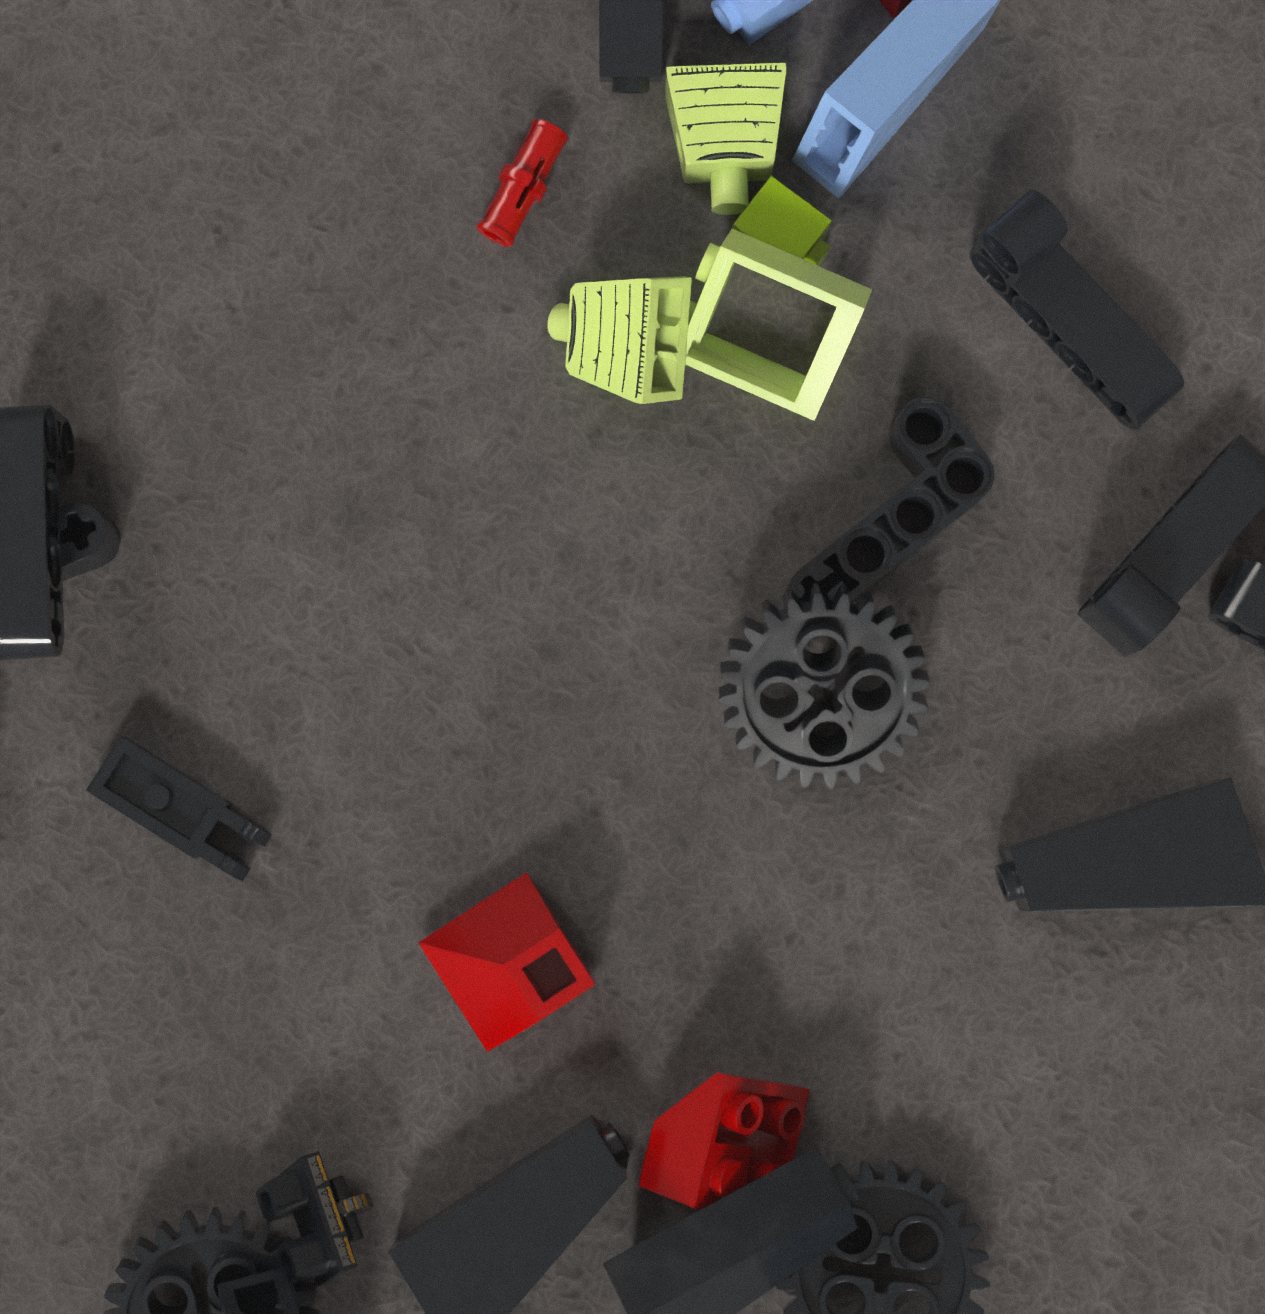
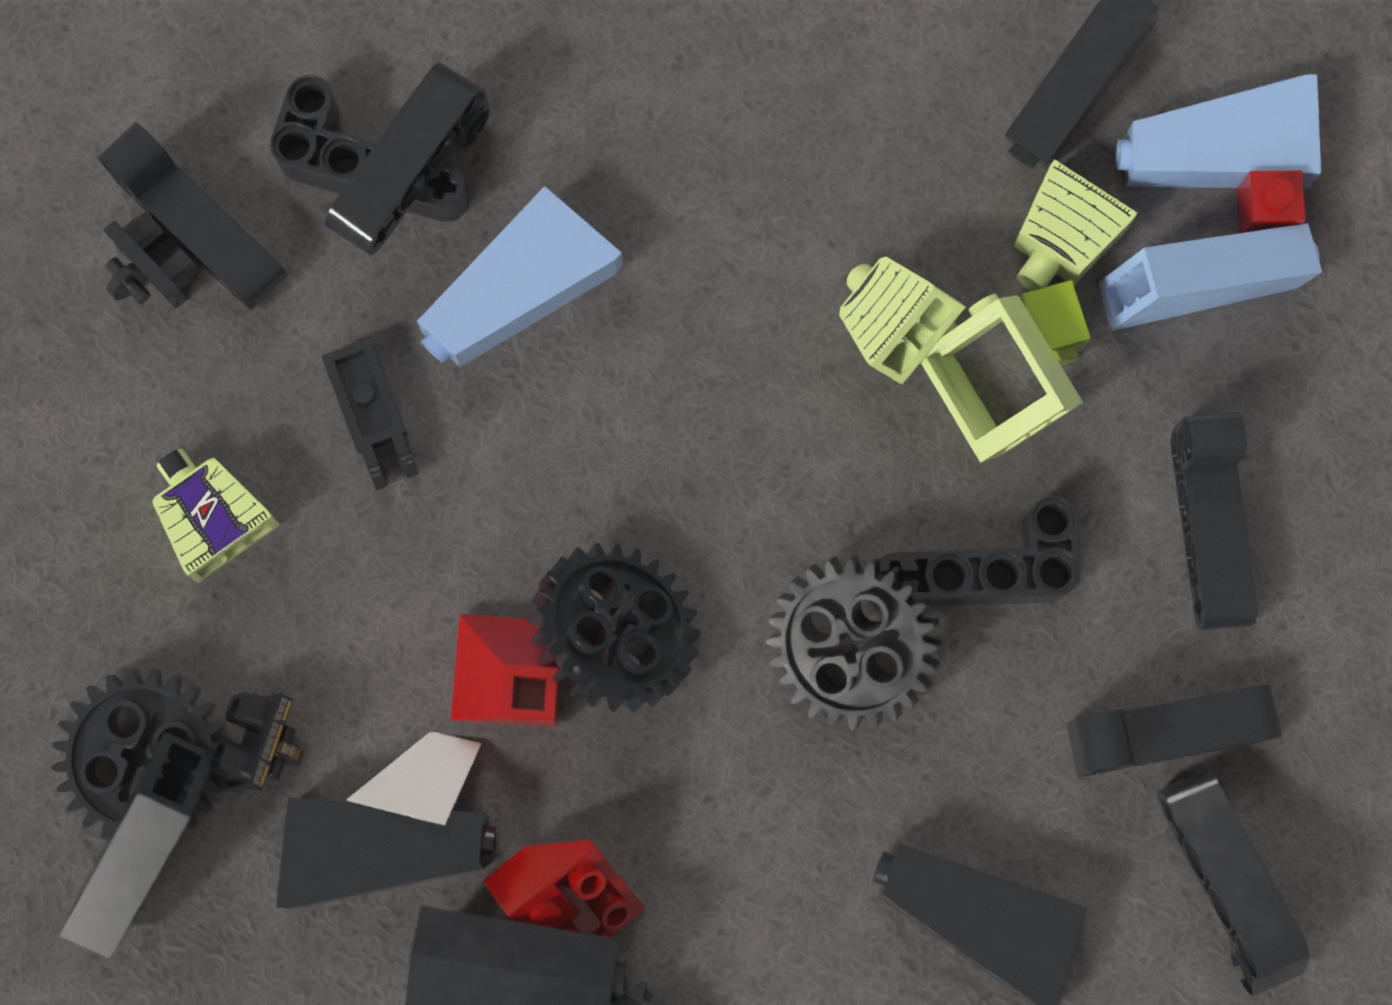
camera: 40 degrees right, 5 degrees down
(92, 1031) = (208, 514): none -> torso
(225, 567) = (519, 278): none -> light blue slope
(505, 1132) = (422, 779): none -> white sticker
(522, 182) = (903, 169): red pin -> none
(528, 858) = (658, 643): none -> black gear

